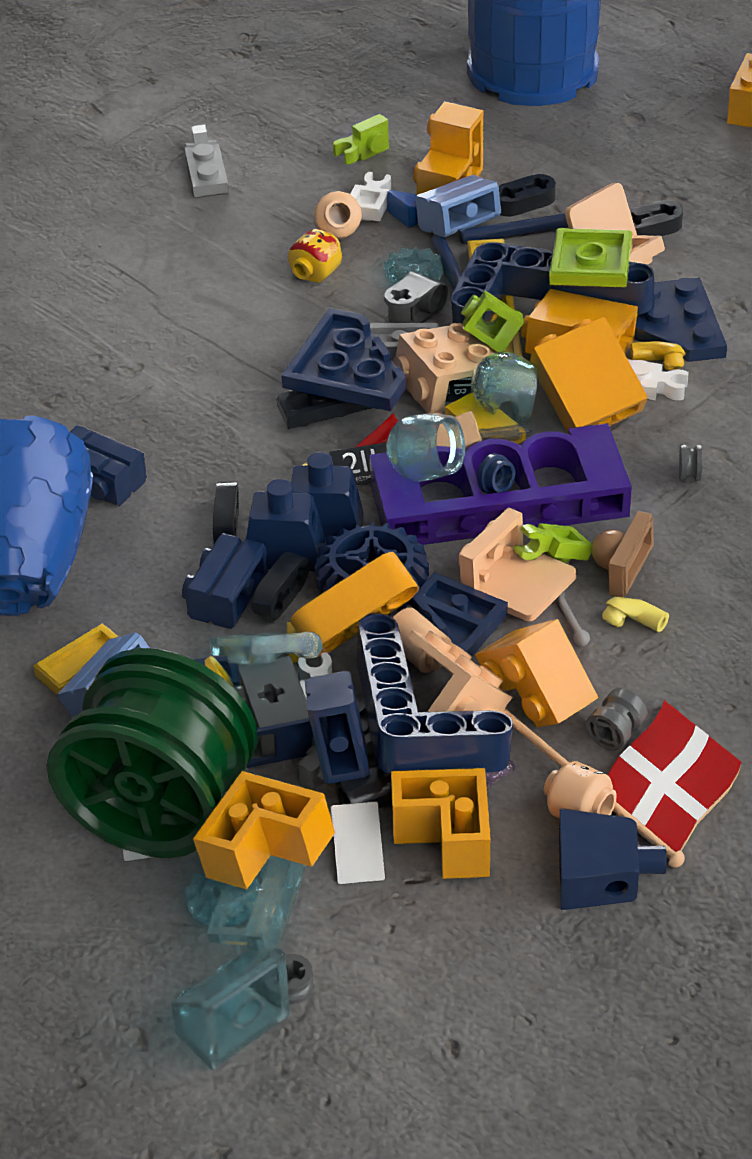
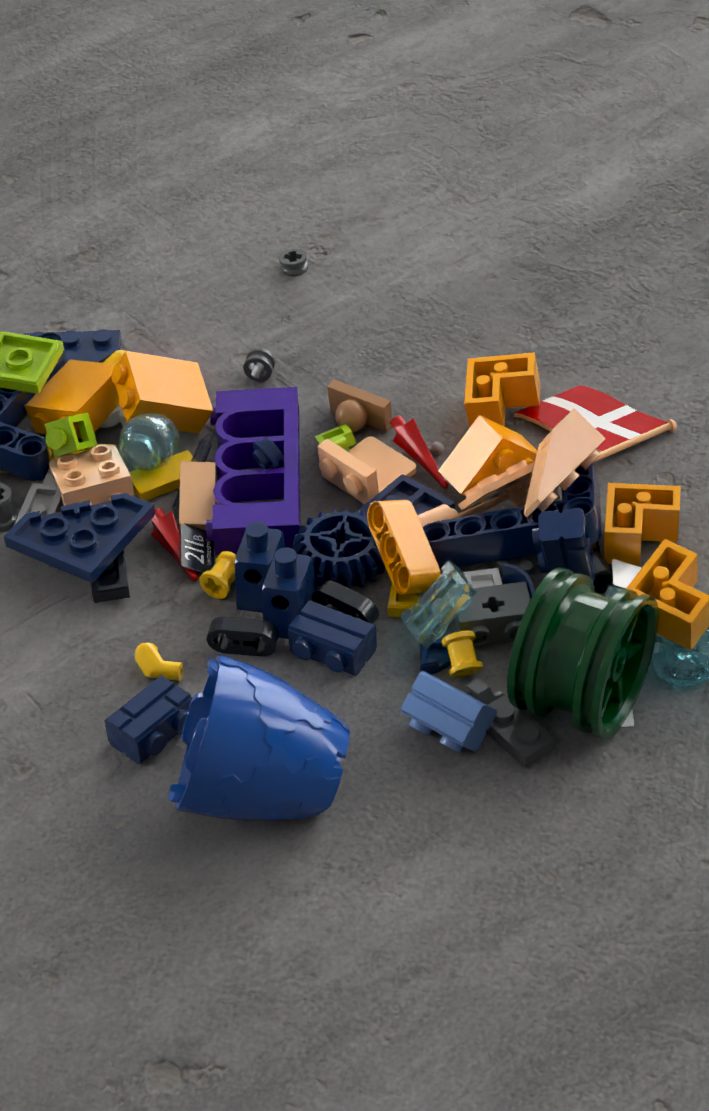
camera: 80 degrees left, 0 degrees up
(65, 663) = (400, 744): yellow tile -> none
(181, 462) = (154, 666): none -> yellow arm
(413, 446) = (241, 477): clear light blue helmet -> none
(466, 684) = (558, 456): none -> light nougat slope
(576, 602) = (411, 441): none -> red piece
(579, 789) = (619, 455): light nougat head -> none
(602, 859) = (676, 455): dark blue torso -> none
(611, 723) = (533, 427): dark grey wheel -> none
(636, 609) = (420, 412): light yellow arm -> none
(672, 658) = (500, 384): none -> light orange brick

